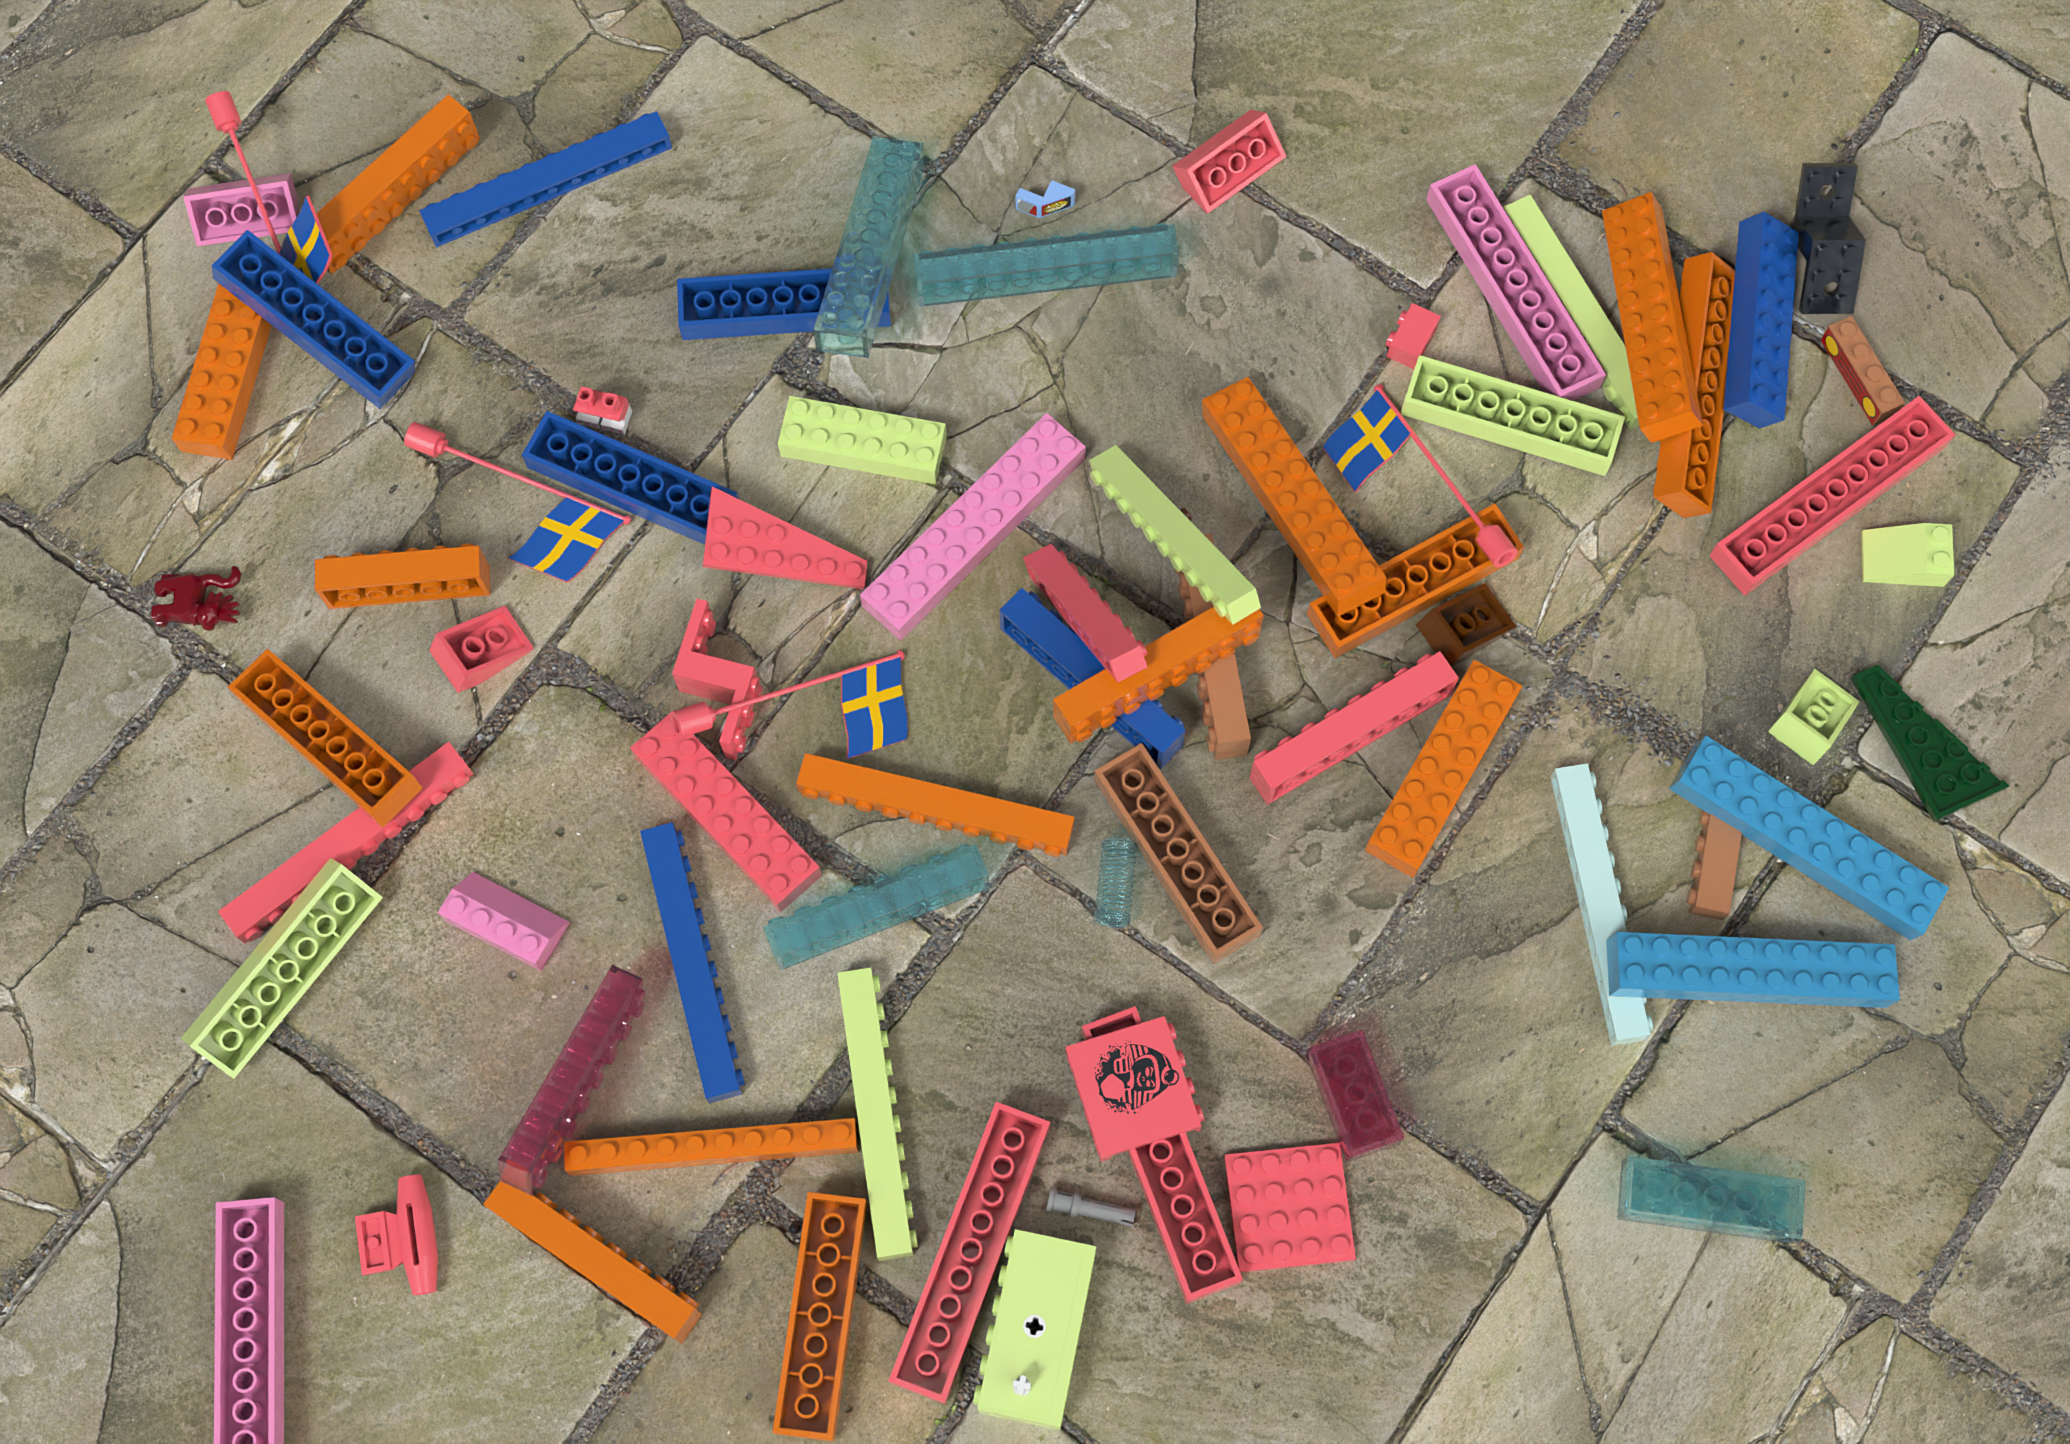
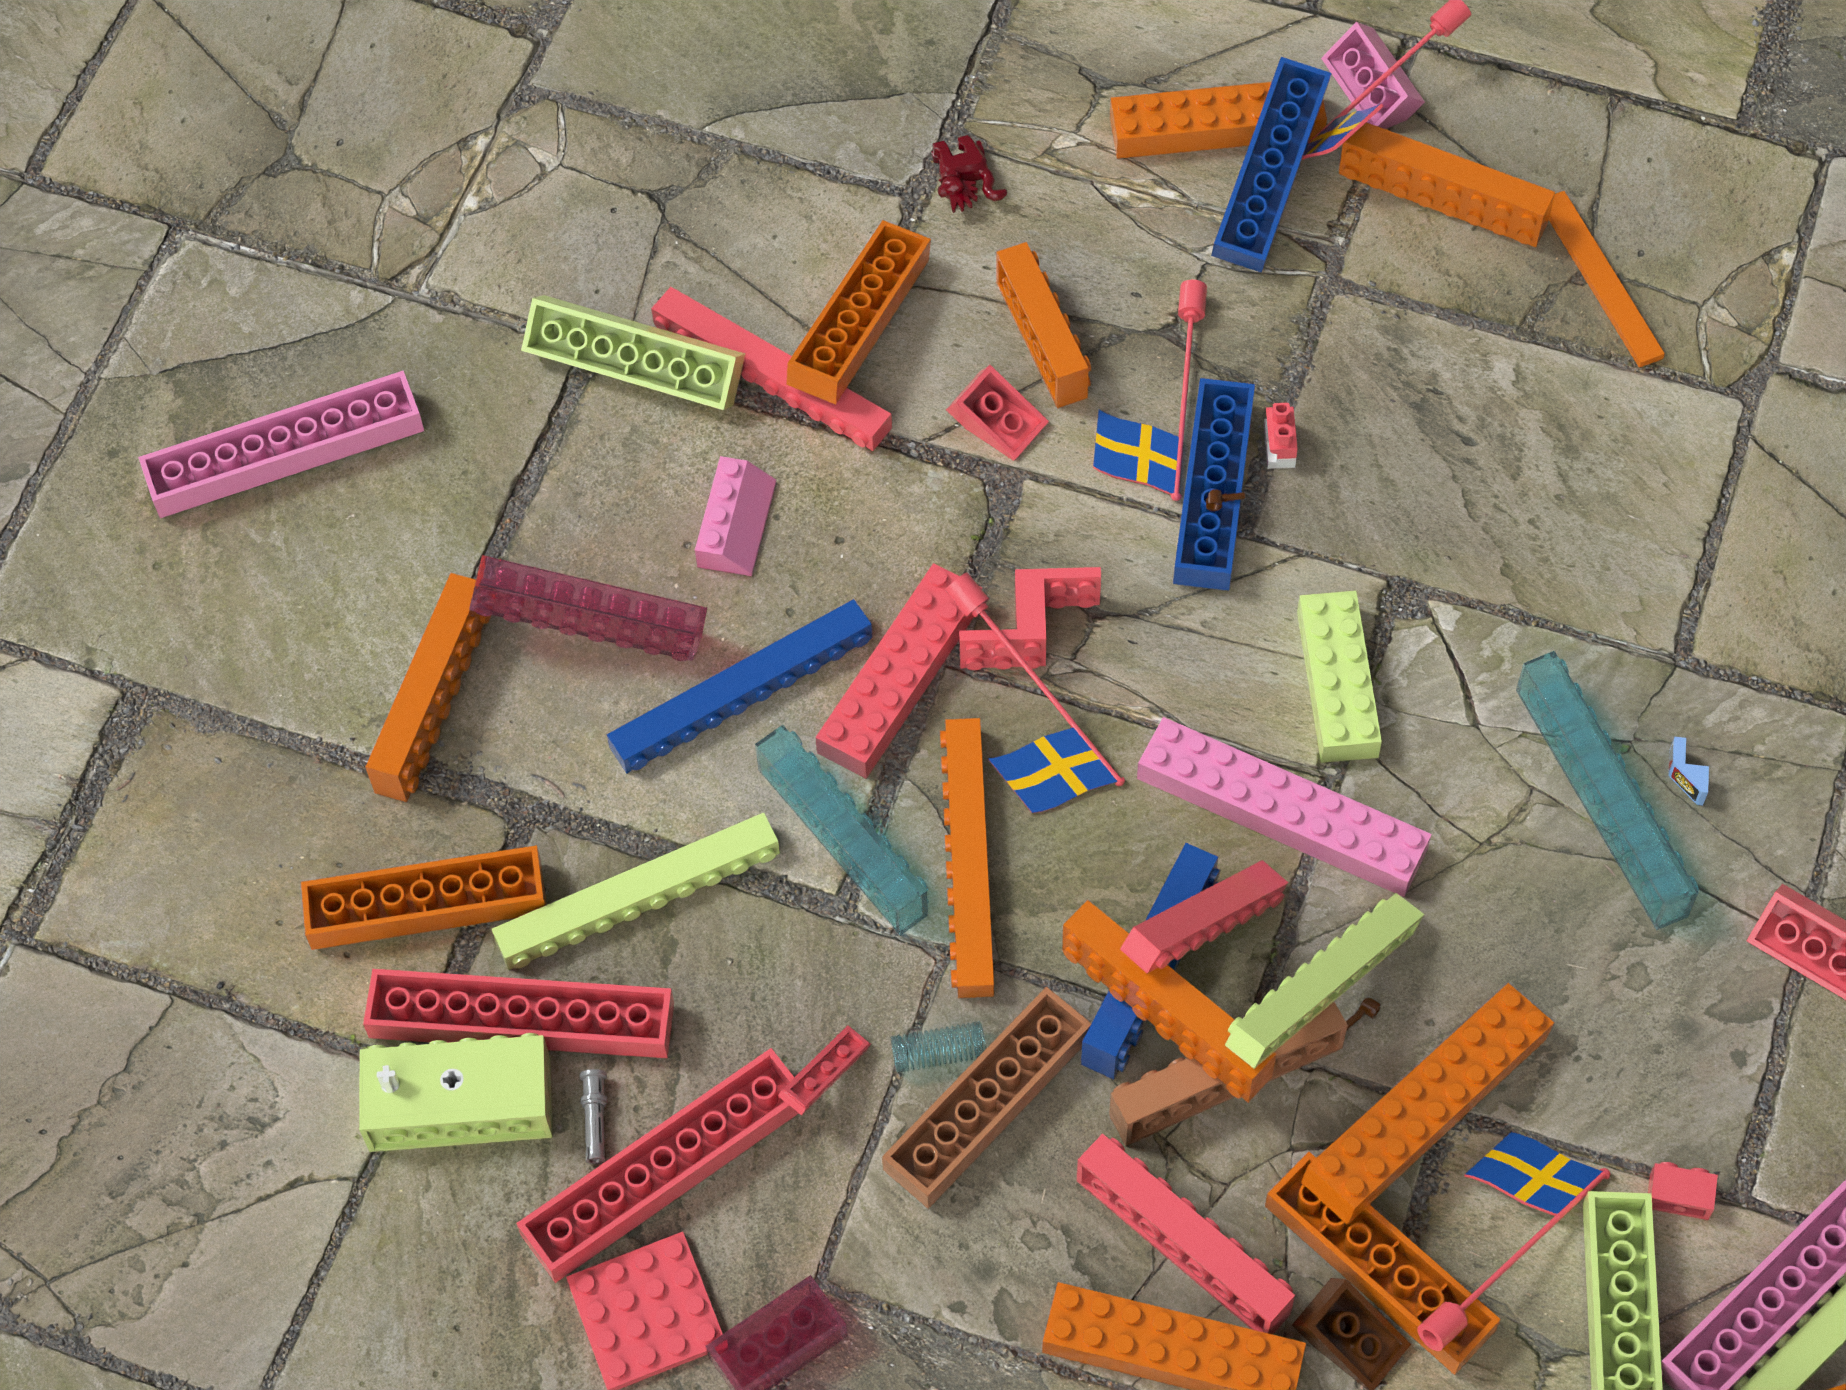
camera: 75 degrees right, 10 degrees down
(402, 1237) = (414, 531): coral plate -> none
(546, 96) = (1604, 282): none -> orange tile
(546, 178) = (1514, 314): blue brick -> none
(658, 480) = (1215, 499): none -> reddish brown hand
(711, 1147) = (563, 756): orange brick -> none
(754, 304) = (1462, 560): blue brick -> none
(761, 544) = (1185, 613): coral wing -> none
(869, 248) = (1548, 609): clear light blue brick -> none
(1114, 985) = (824, 1070): none -> coral tile
(1133, 1087) = (721, 1114): coral panel -> none

